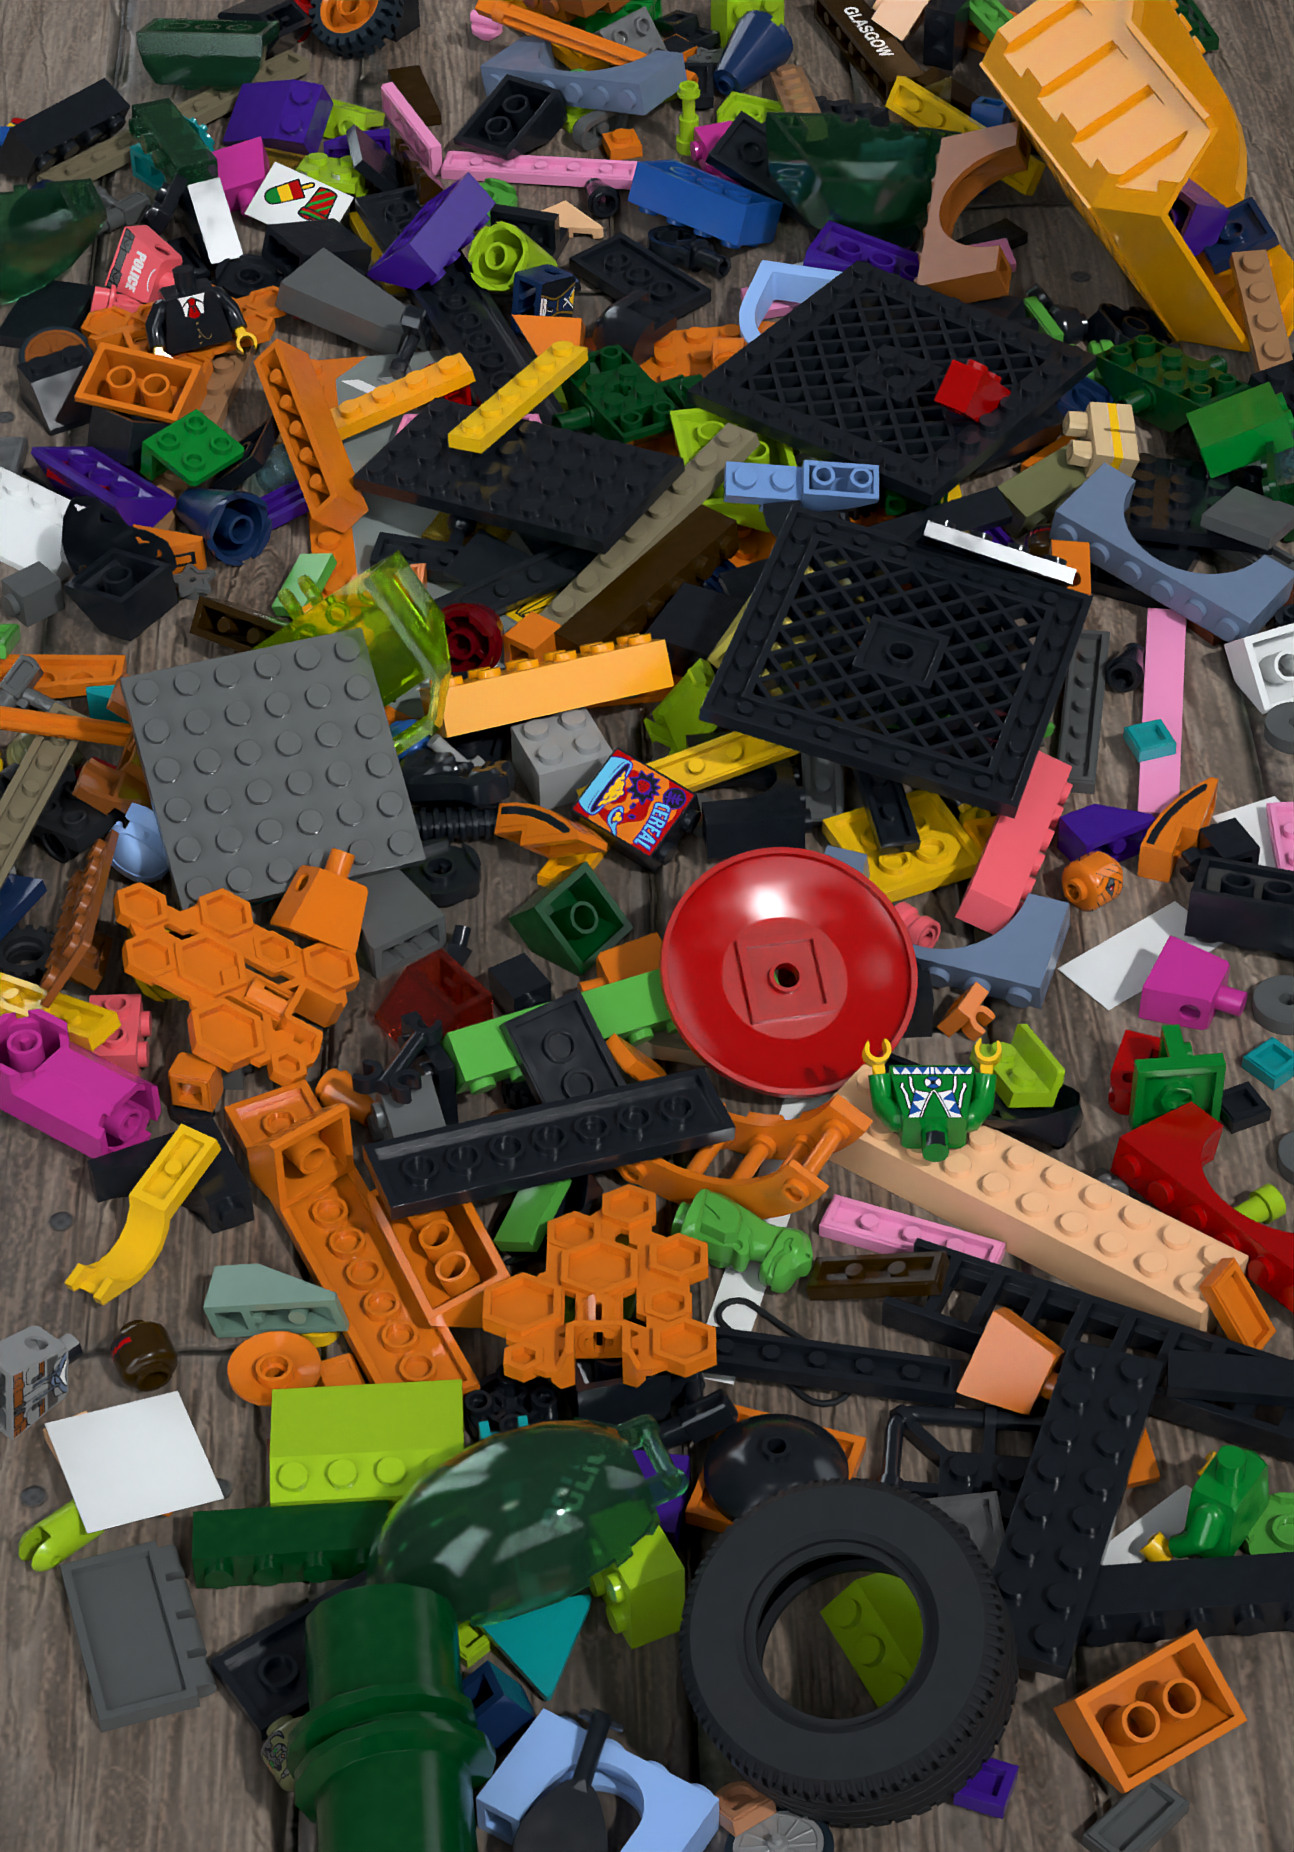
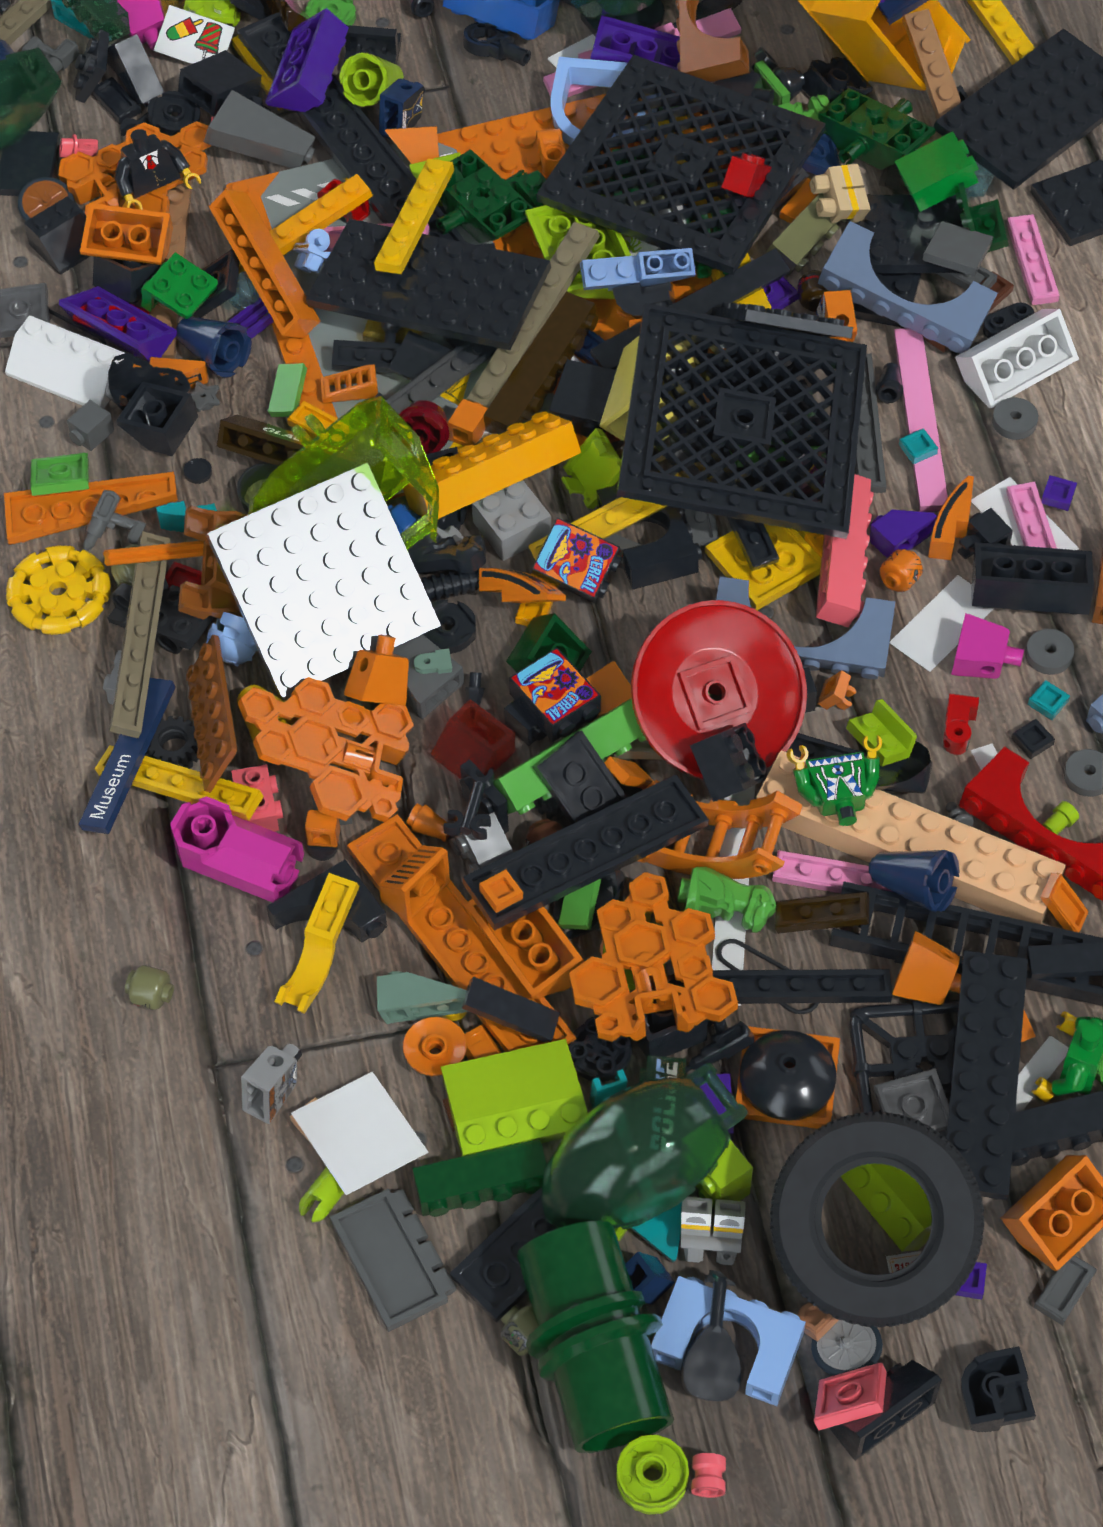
camera: 10 degrees left, 15 degrees up
(142, 264) = (95, 115): coral torso -> none
(144, 1355) = (344, 1050): dark brown head -> none
(159, 659) = (197, 470): none -> black piece
(379, 430) = (312, 252): none -> light blue hips
(390, 1327) = (510, 1010): none -> black tile
(401, 902) = (438, 662): none -> sand green piece
(409, 1164) = (501, 891): none -> orange plate
(418, 334) = (317, 154): black piece -> none
(558, 950) = (555, 694): none -> brick
(575, 220) = (397, 20): light nougat tile -> none
(610, 1652) = (722, 1237): none -> light grey hips
(625, 266) = (465, 75): black plate -> none
(633, 325) = (473, 126): black brick -> none
(783, 1062) = (729, 762): none -> black slope
(922, 929) = (792, 628): coral wheel -> none
(1027, 1237) = (918, 876): none -> dark blue cone
(1175, 1080) = (991, 734): green bracket -> none

